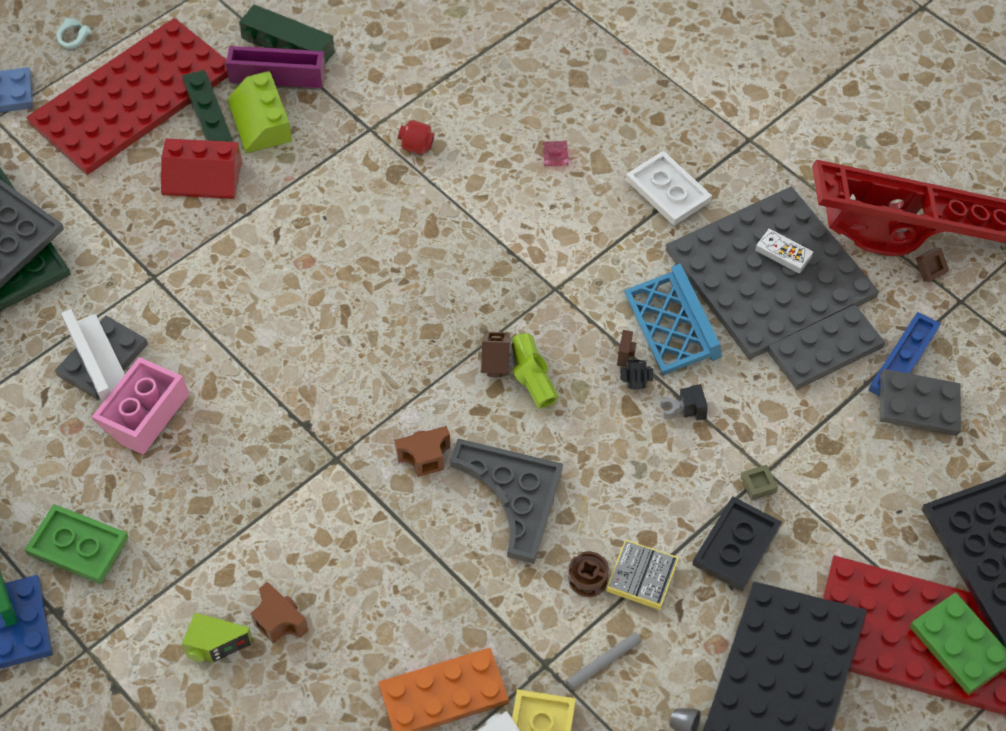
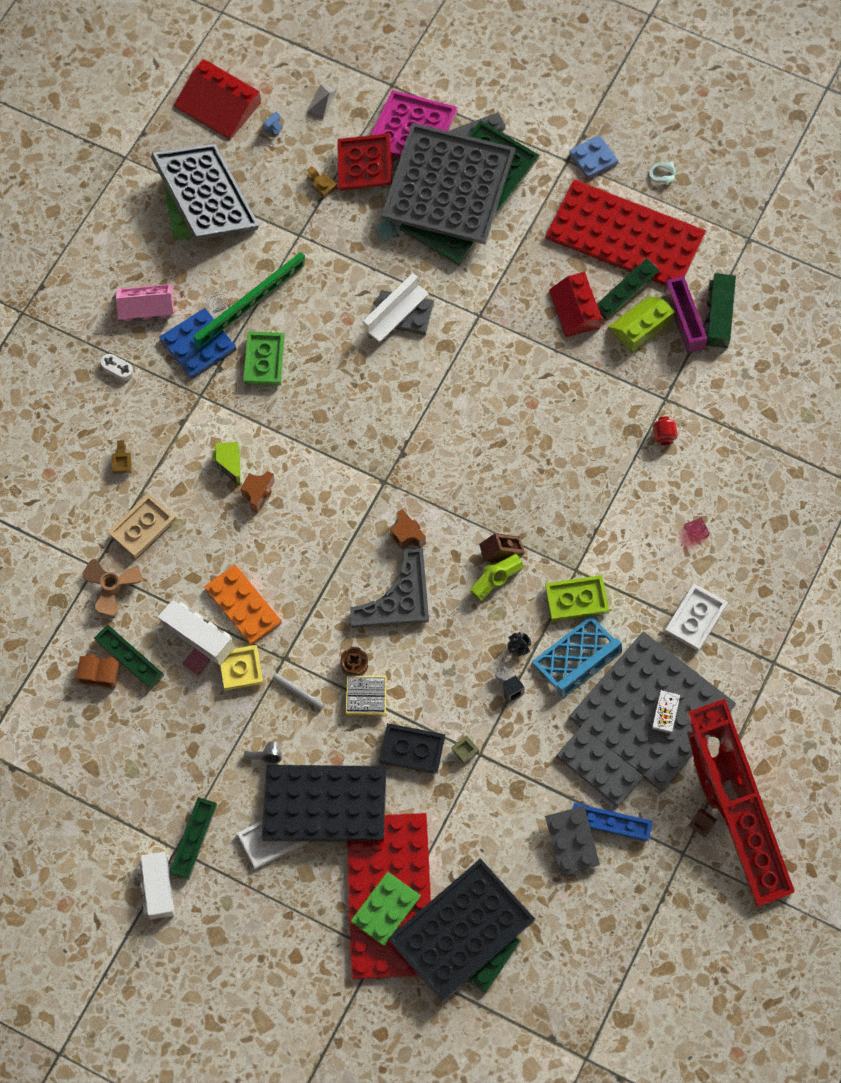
camera: 70 degrees right, 10 degrees up
(141, 405) = (370, 350): bright pink slope -> none
(596, 296) = (577, 598): none -> lime plate
(626, 349) = (538, 631): reddish brown plate -> none

